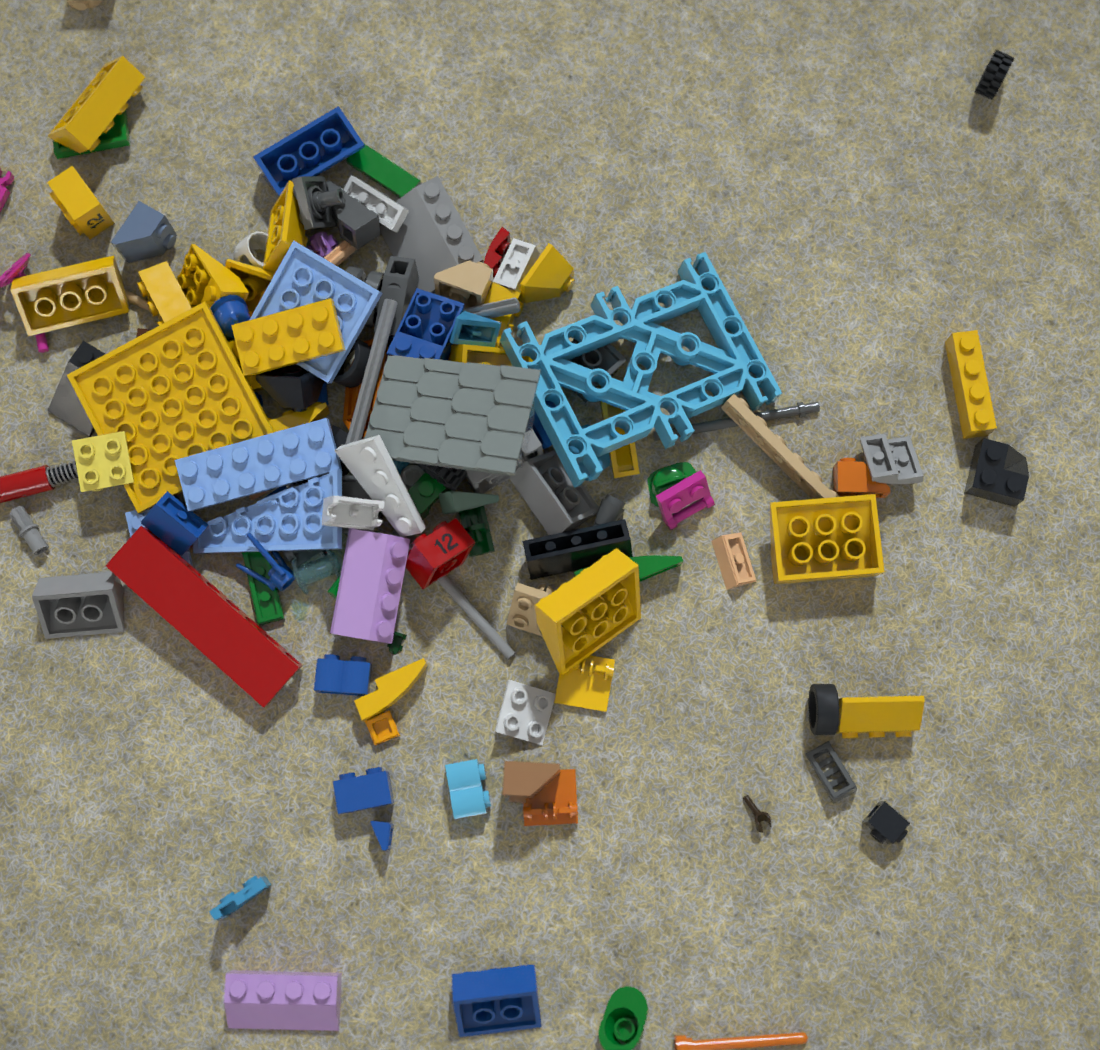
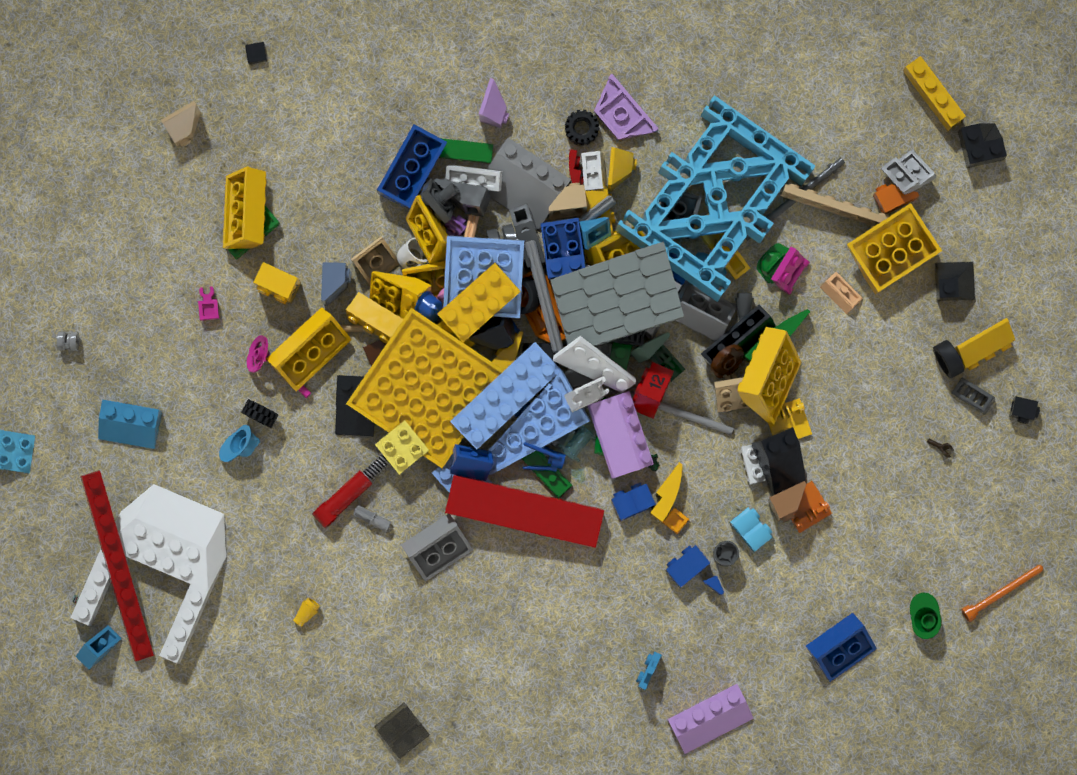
camera: 25 degrees left, 5 degrees up
(211, 232) = (375, 258): none -> tan slope
(417, 802) = (726, 553): none -> dark grey wheel
(440, 134) = (493, 108): none -> lavender slope
(531, 199) = (581, 116): none -> black tyre
(548, 566) = (727, 361): none -> reddish brown tile
(548, 723) = (780, 460): none -> black slope
(587, 221) = (622, 113): none -> lavender wing
(880, 619) = (954, 281): none -> black slope

